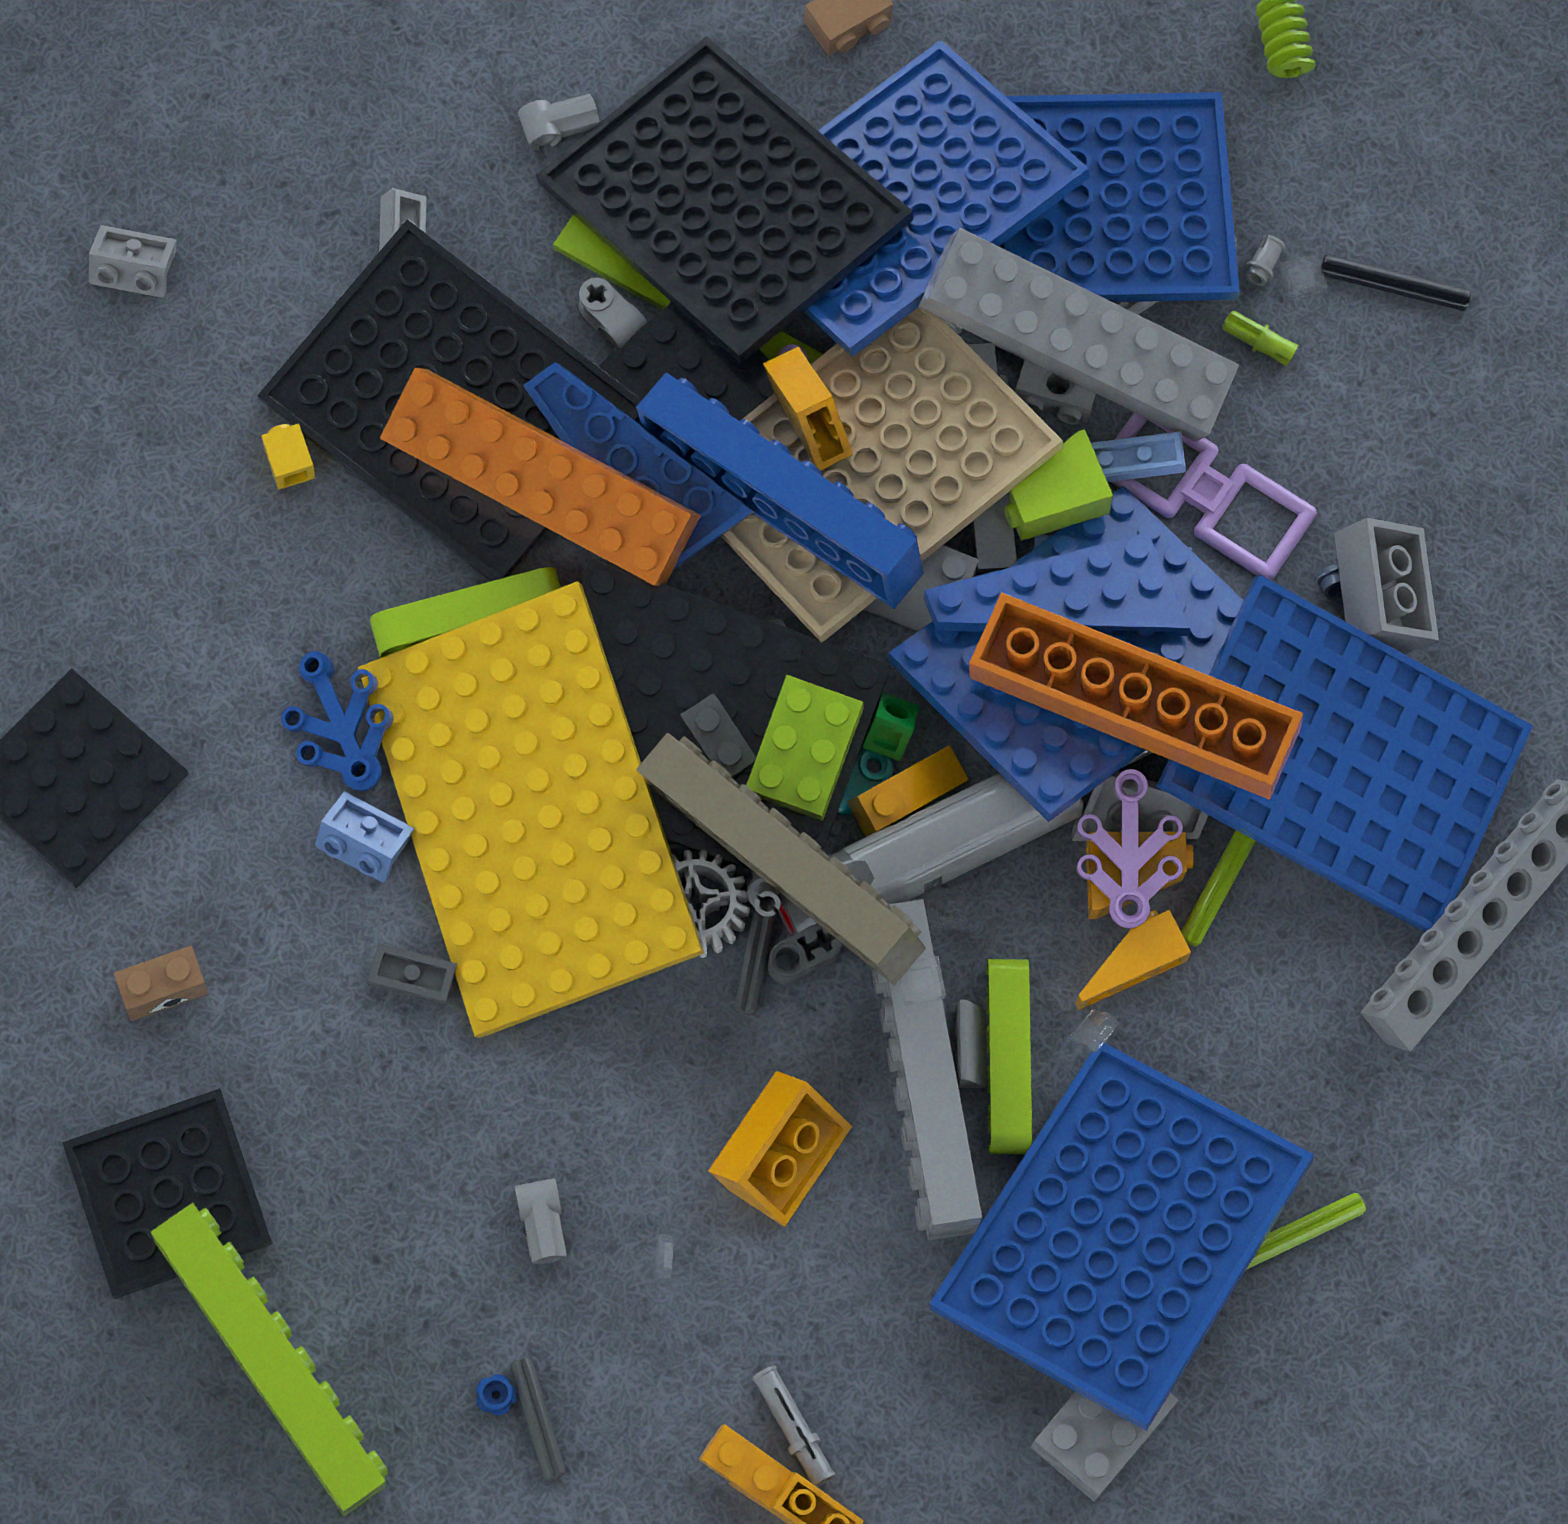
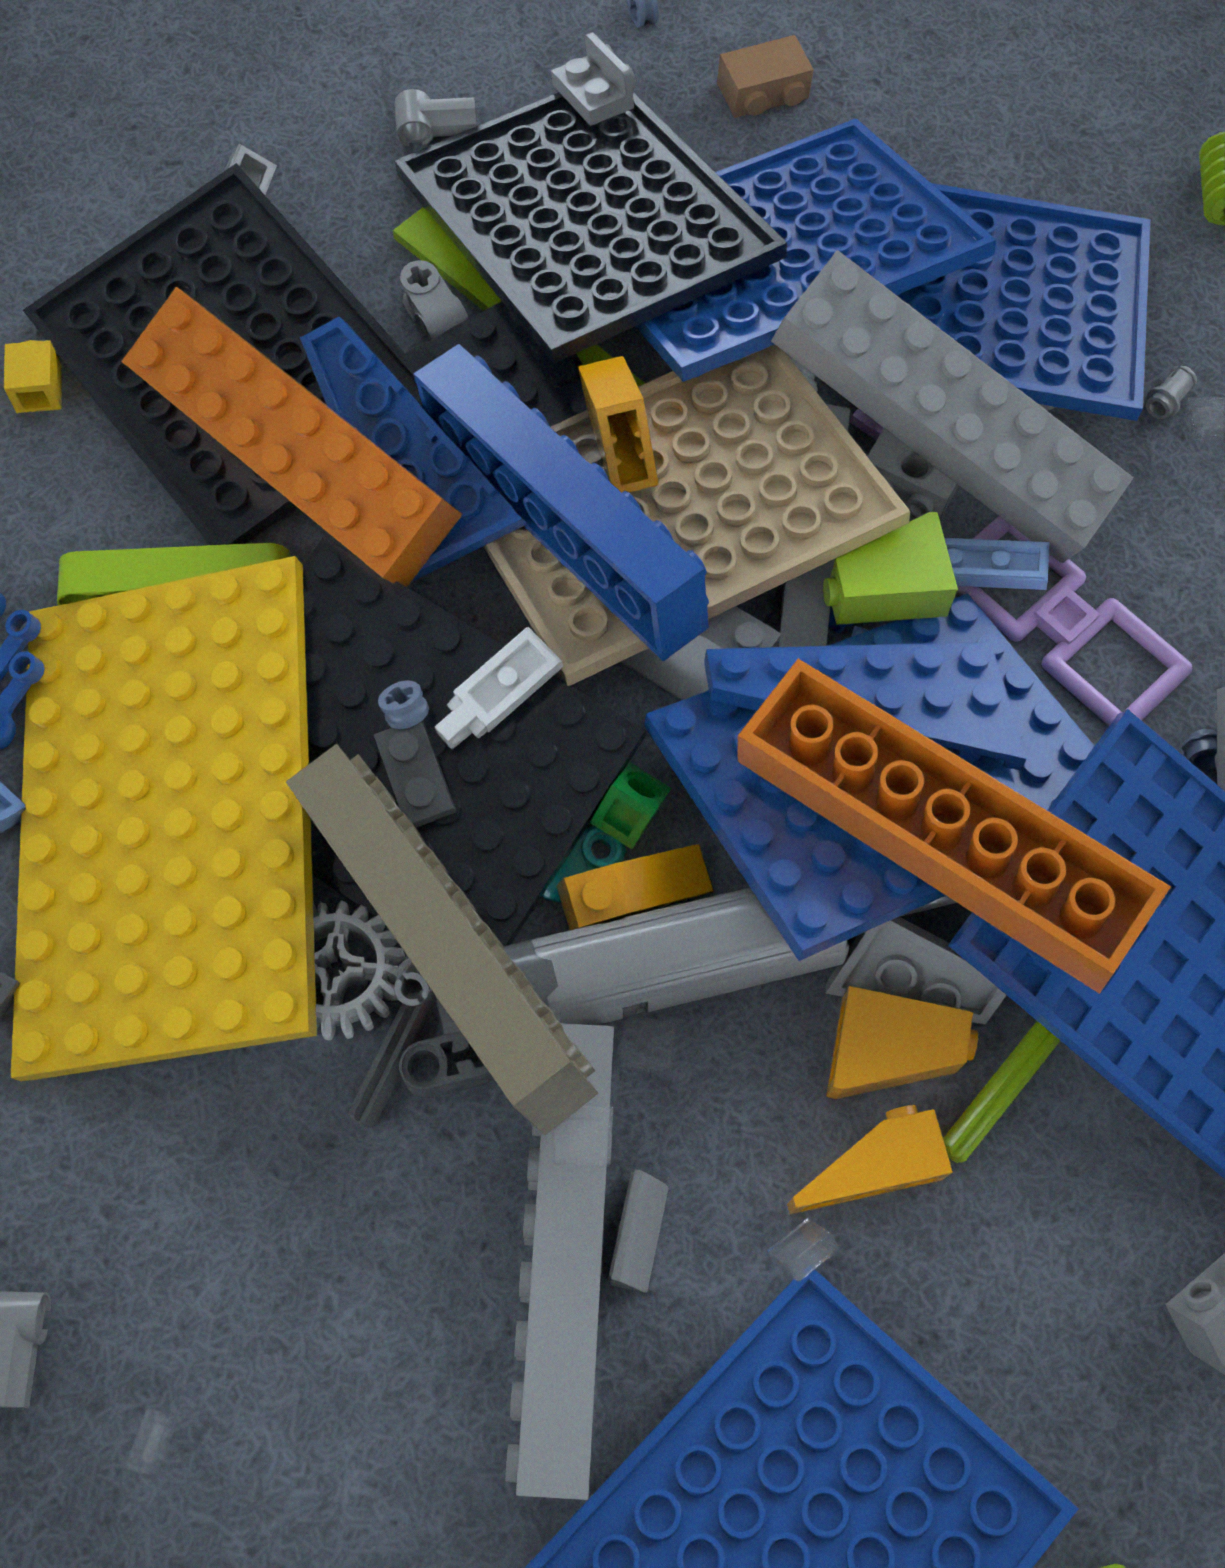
camera: 15 degrees right, 5 degrees down
(698, 676) = (403, 704): none -> sand blue bush
(699, 61) = (596, 84): none -> light grey bracket
(771, 656) = (498, 688): none -> white hinge
(780, 1147) = (351, 1320): light orange slope -> none
(805, 747) = (512, 804): lime brick -> none
(1009, 1056) = (683, 1263): lime beam -> none
(1128, 855) = (894, 1028): lavender plant -> none
(1260, 337) = (1153, 468): lime axle -> none

